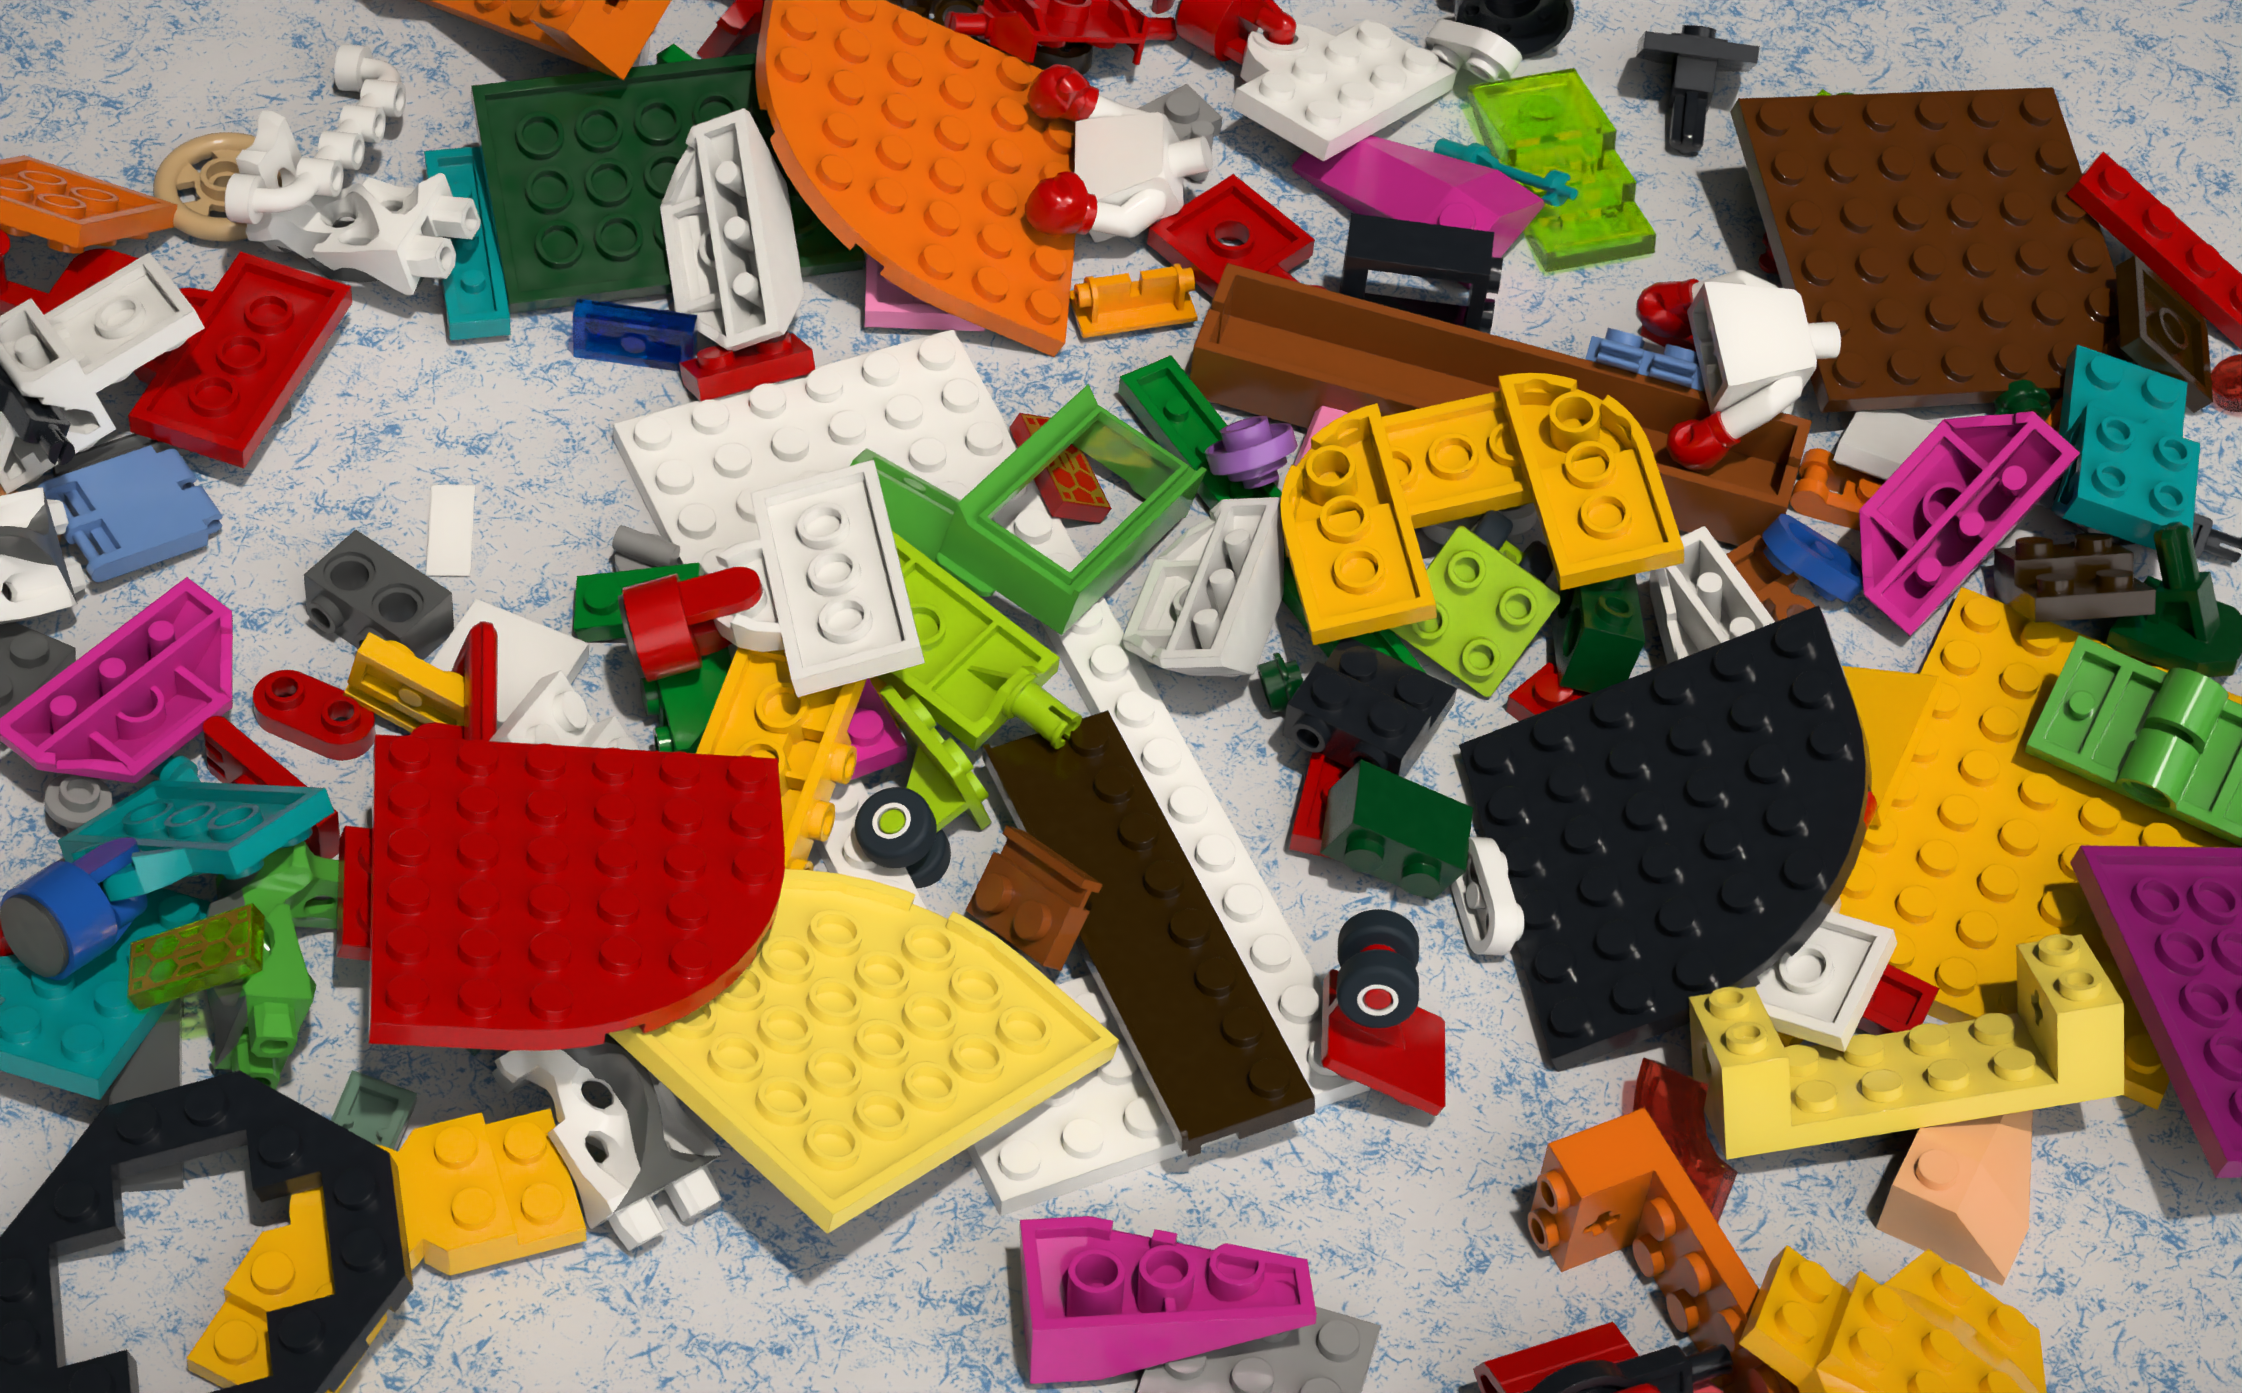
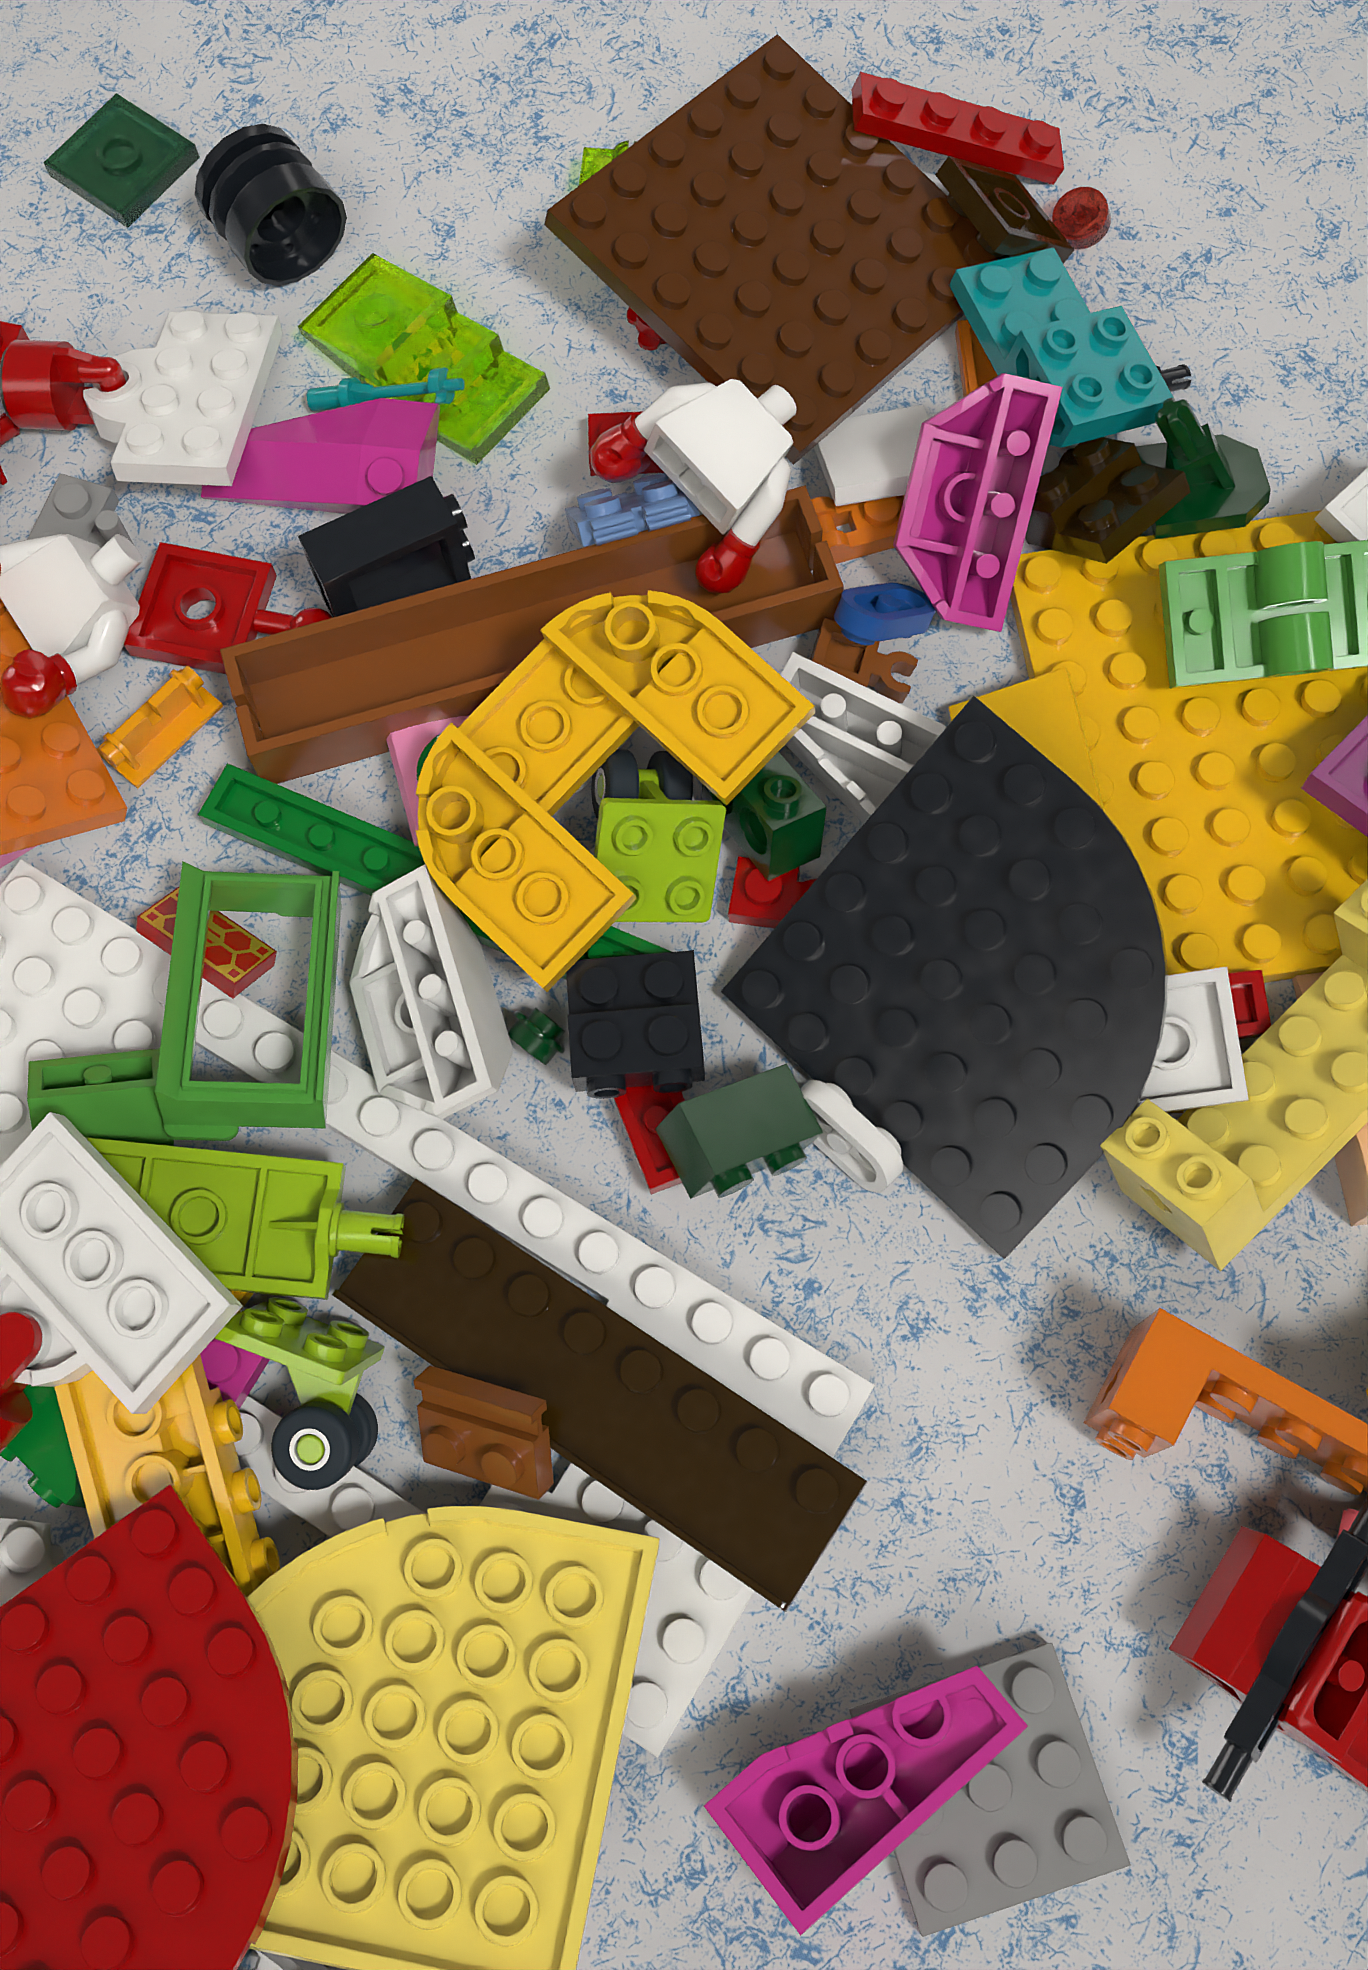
camera: 25 degrees left, 20 degrees up
(1251, 451) = (365, 827): medium lavender plate -> none
(1373, 1017) = (864, 1349): plate -> none
(1473, 50) = (291, 287): white plate -> none
(1677, 1109) = (1161, 1275): clear red tile -> none
(1694, 62) = (476, 202): black piece -> none
(2023, 397) = (938, 353): dark green plate -> none

